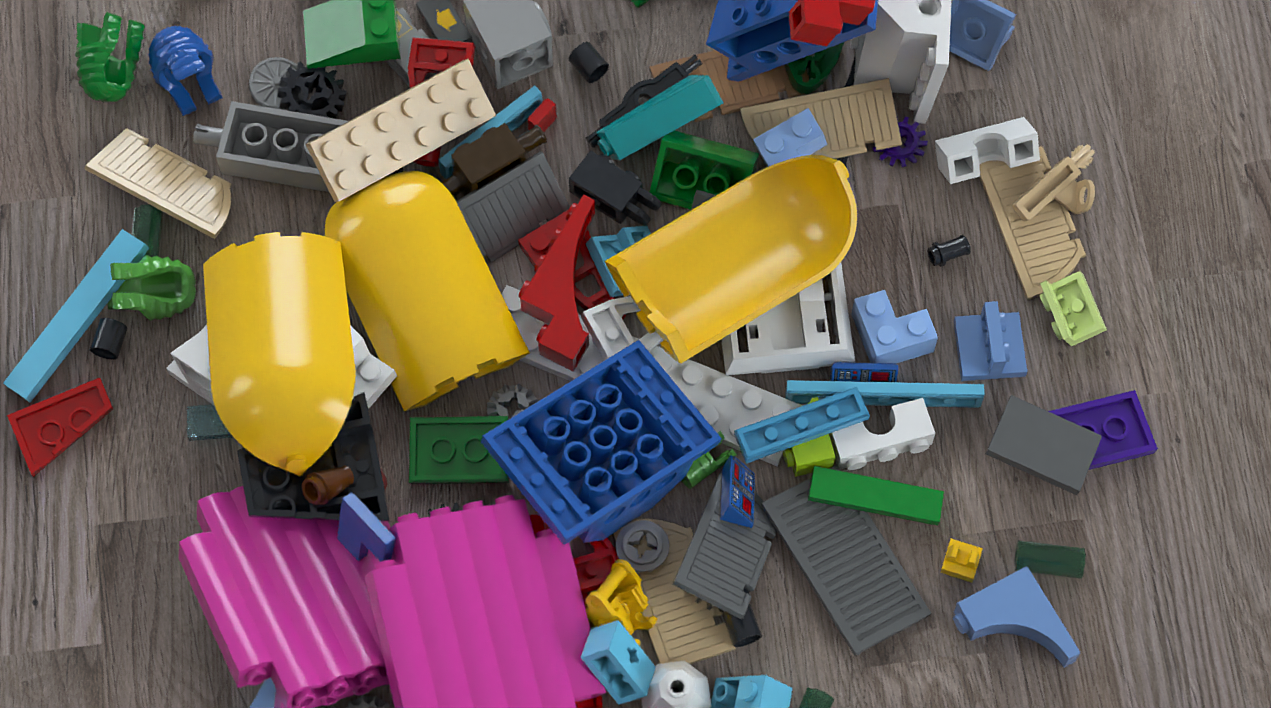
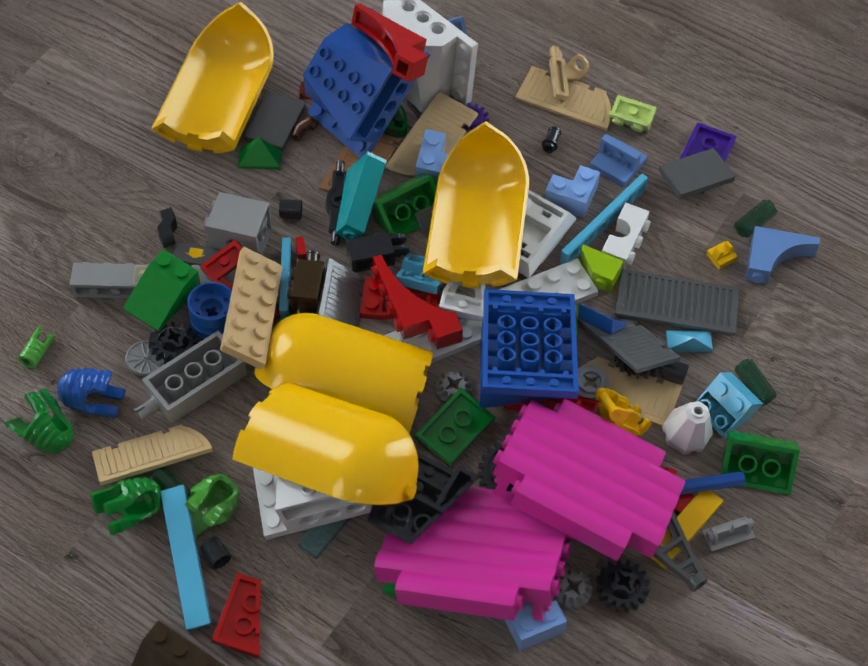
camera: 50 degrees left, 10 degrees down
(99, 210) = (133, 499): none -> green hair
(326, 484) = (432, 488): reddish brown cone -> none
(363, 531) = (474, 486): blue tile -> none
(373, 81) = (208, 308): none -> blue wheel
(618, 662) = (655, 432): medium azure brick -> none
(801, 424) = (593, 261): dark azure tile -> none
(804, 611) = (689, 341): none -> medium azure slope
(864, 372) = (585, 218): slope -> none
(876, 495) = (655, 263): green tile -> none
(1009, 142) = (508, 94): white arch -> none

